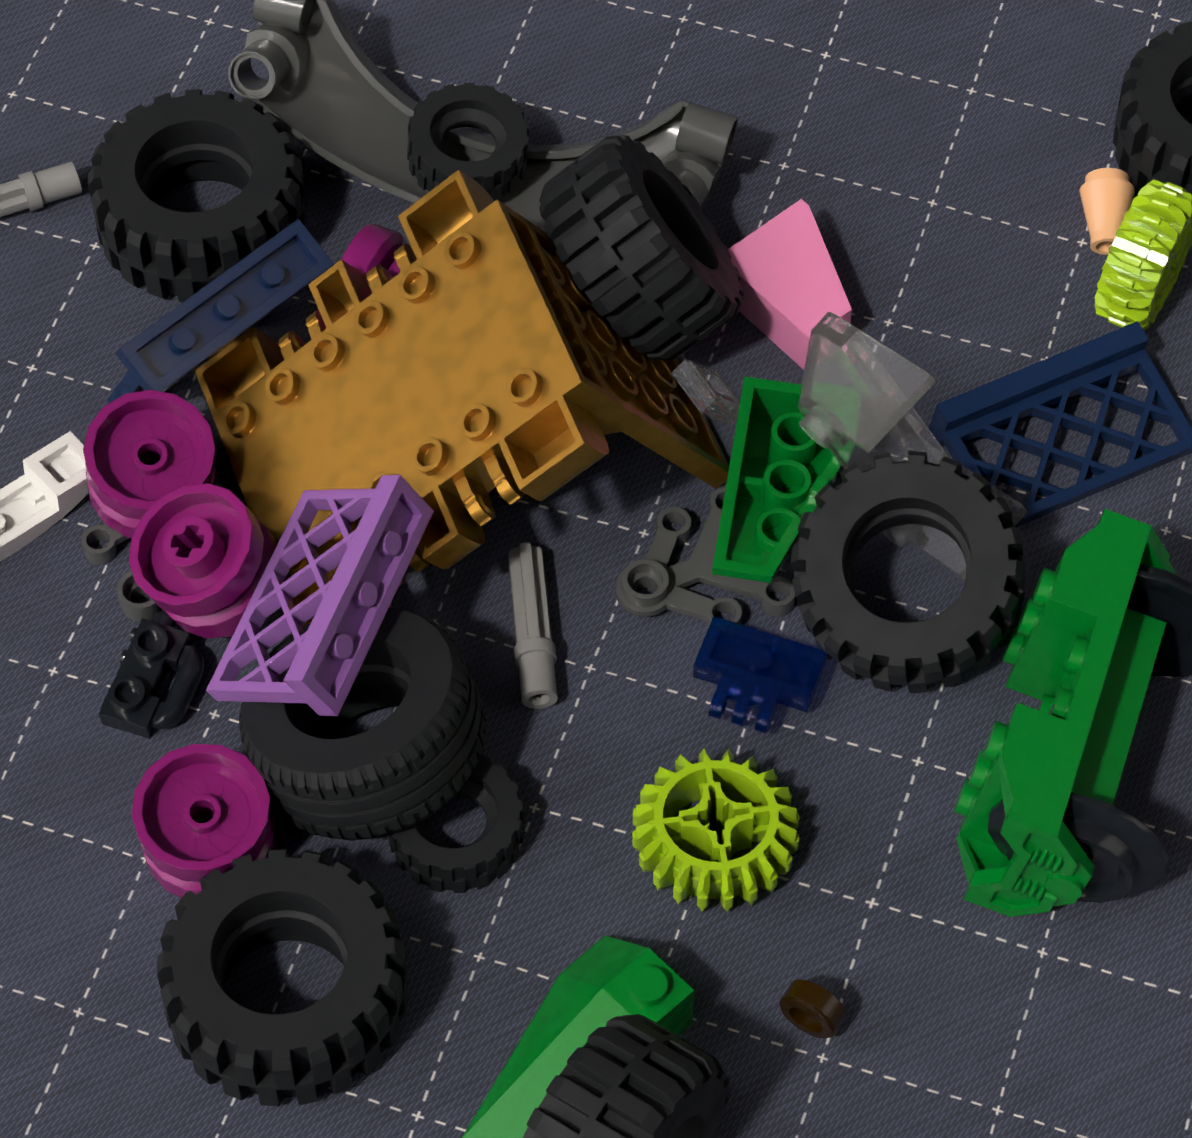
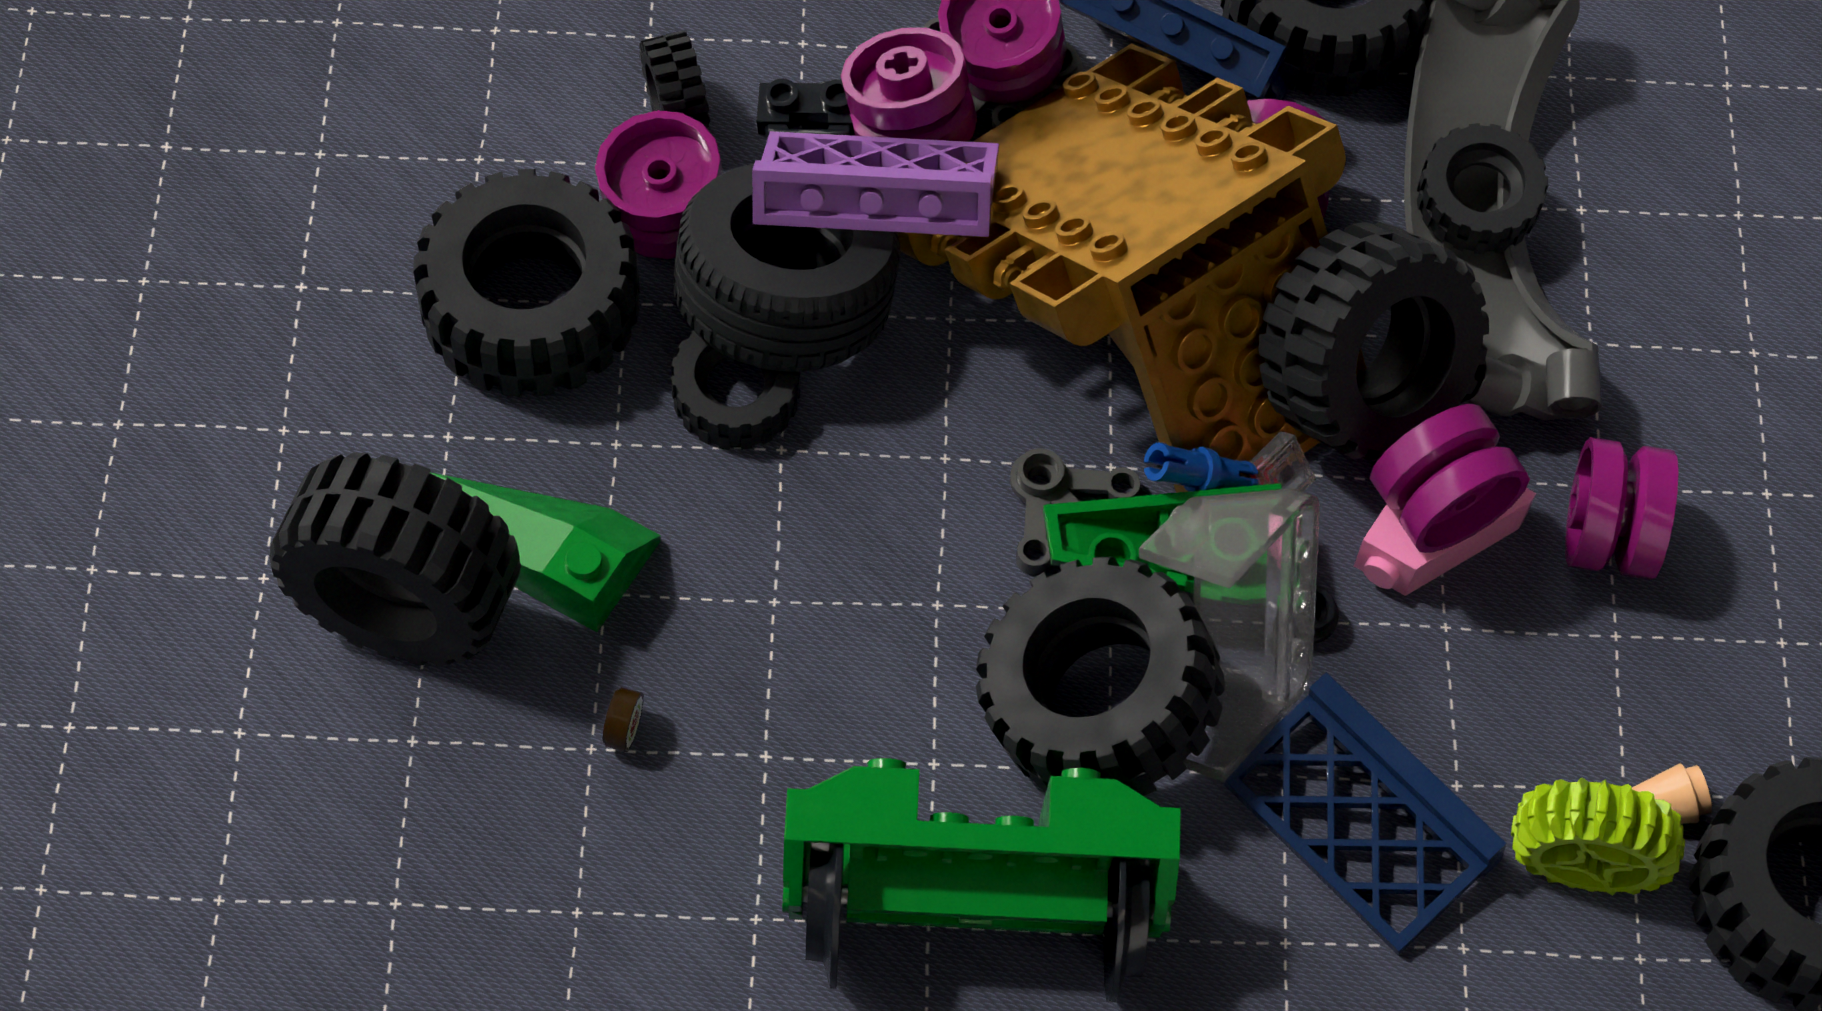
camera: 70 degrees right, 5 degrees up
(85, 781) = (674, 76): none -> black tyre
(534, 645) = (938, 403): light grey axle -> none
(710, 435) = (1197, 468): none -> blue pin
(742, 805) = (825, 571): lime gear -> none
(757, 672) = (968, 588): clear blue hinge -> none
(799, 236) = (1449, 478): none -> magenta wheel
(837, 141) = (1621, 508): none -> magenta wheel

